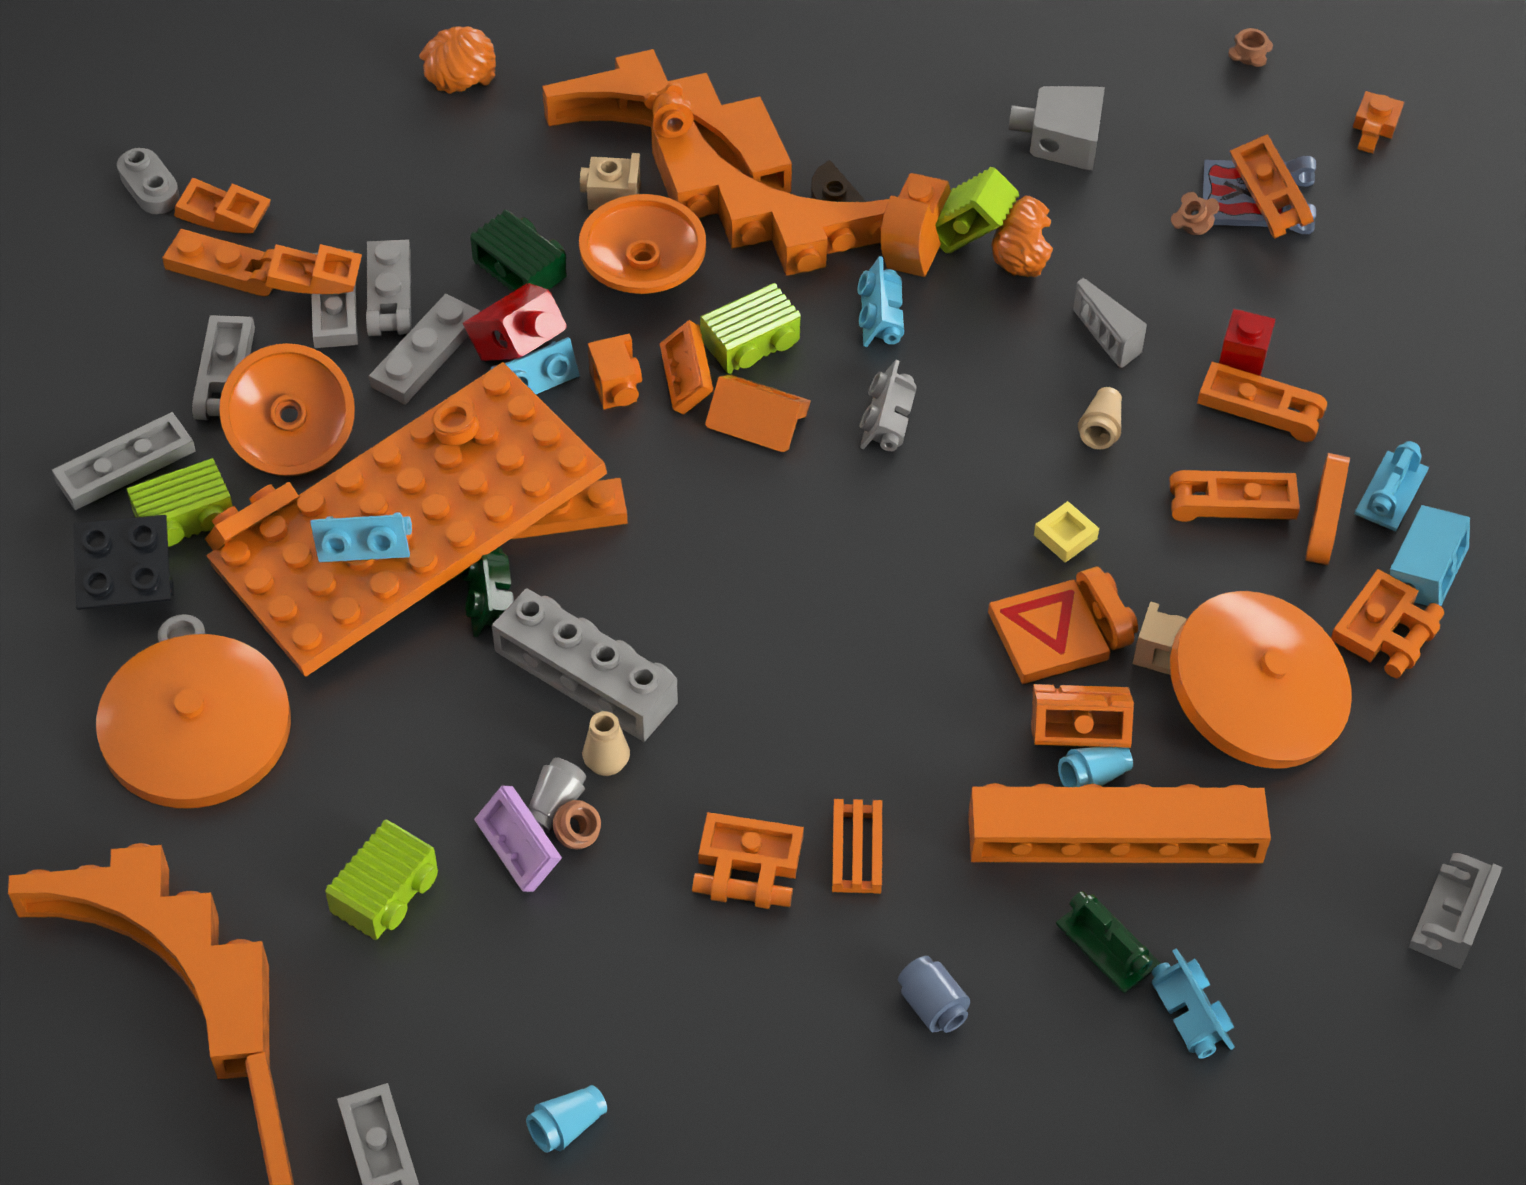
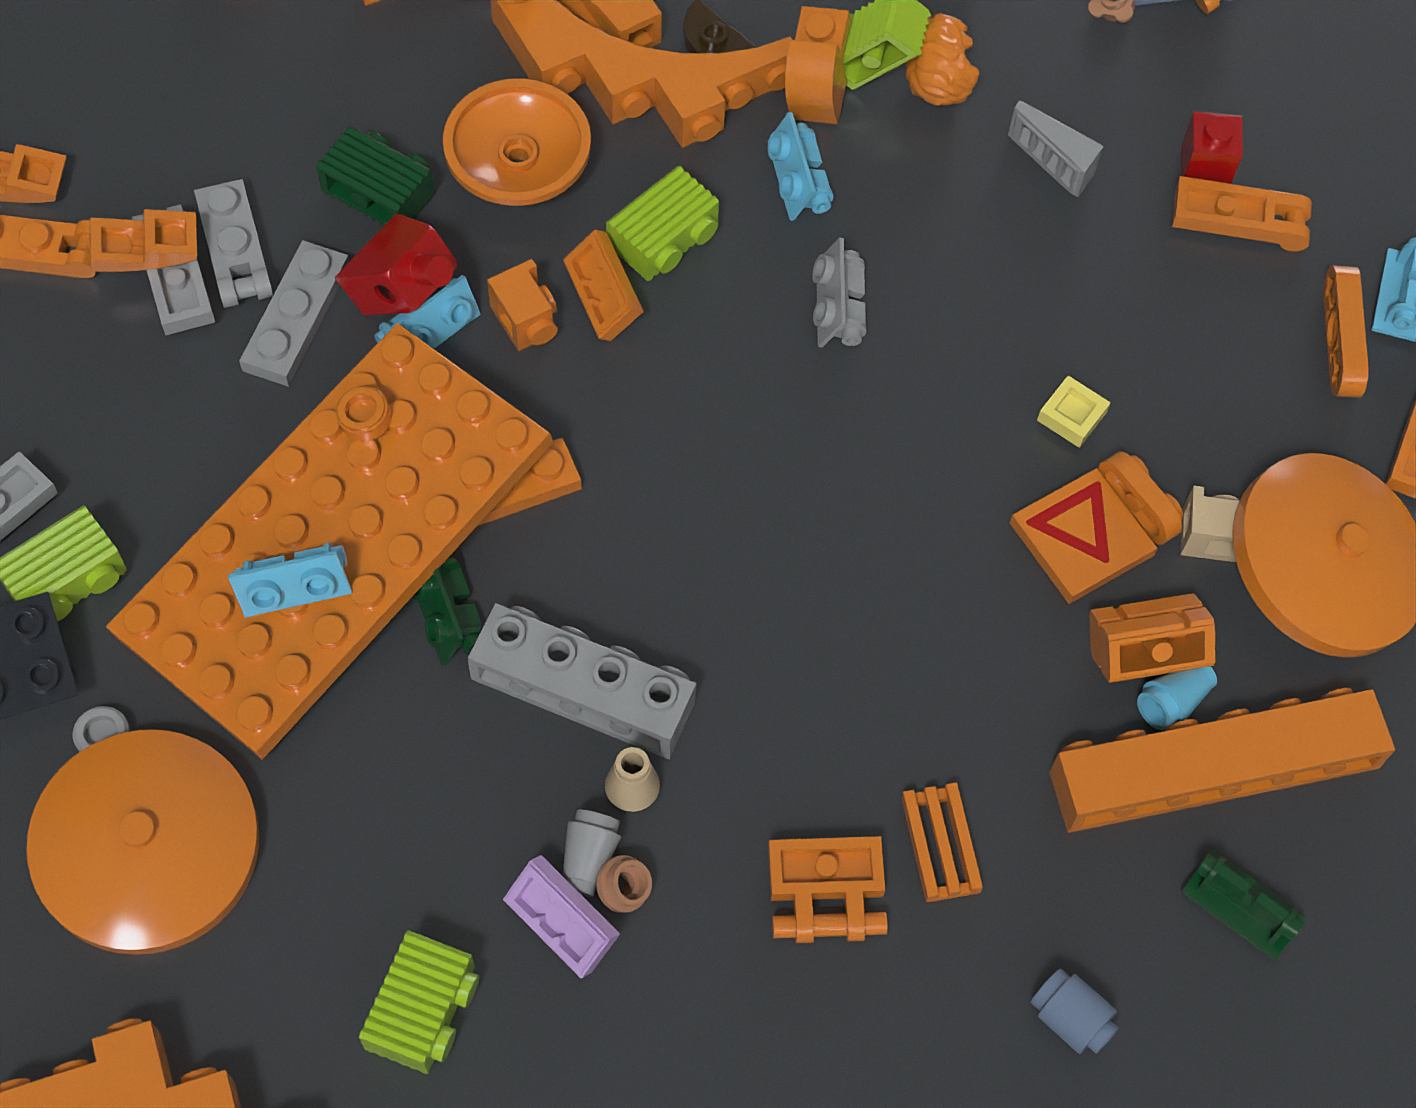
camera: 15 degrees left, 10 degrees up
(225, 345) = (64, 380): light grey plate -> none
(264, 503) = (131, 584): orange plate -> none
(283, 379) = (116, 417): orange dish -> none
(610, 179) = (458, 66): tan brick -> none
(755, 412) = (694, 326): orange panel -> none
(1102, 419) = (1077, 267): tan cone -> none
(1204, 1022) = (1370, 979): medium azure hinge -> none
(1234, 495) = (1242, 332): orange plate -> none

